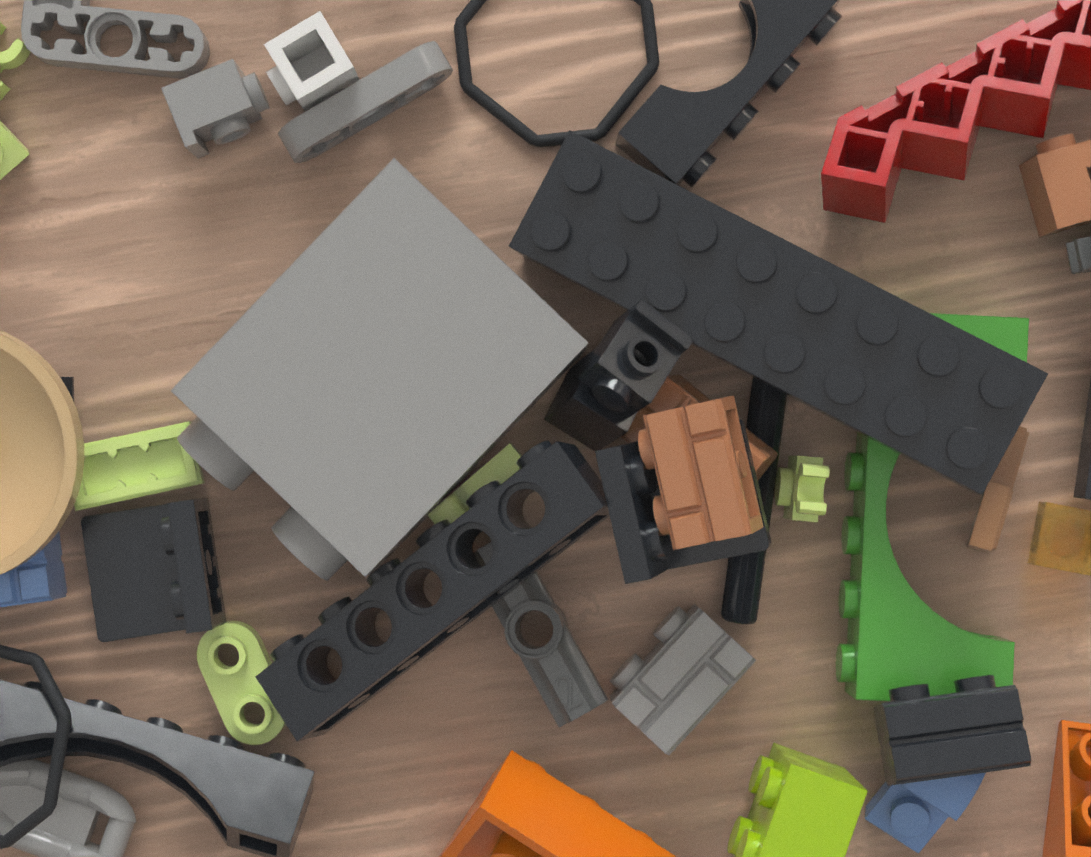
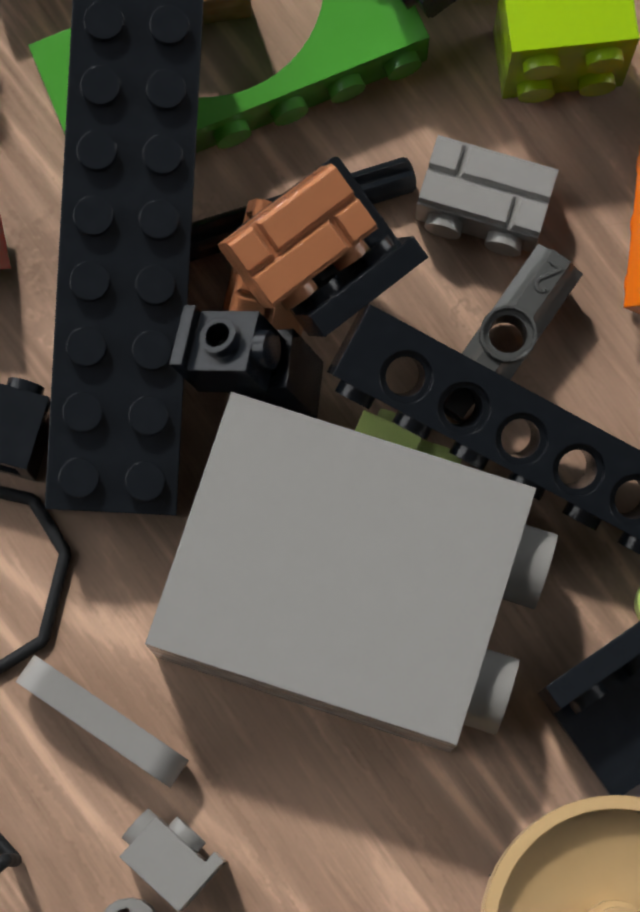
camera: 110 degrees left, 10 degrees down
(136, 467) = (536, 763): yellowish green plate -> none
(309, 63) = (91, 783): white brick -> none
(802, 488) = (268, 166): yellowish green plate -> none

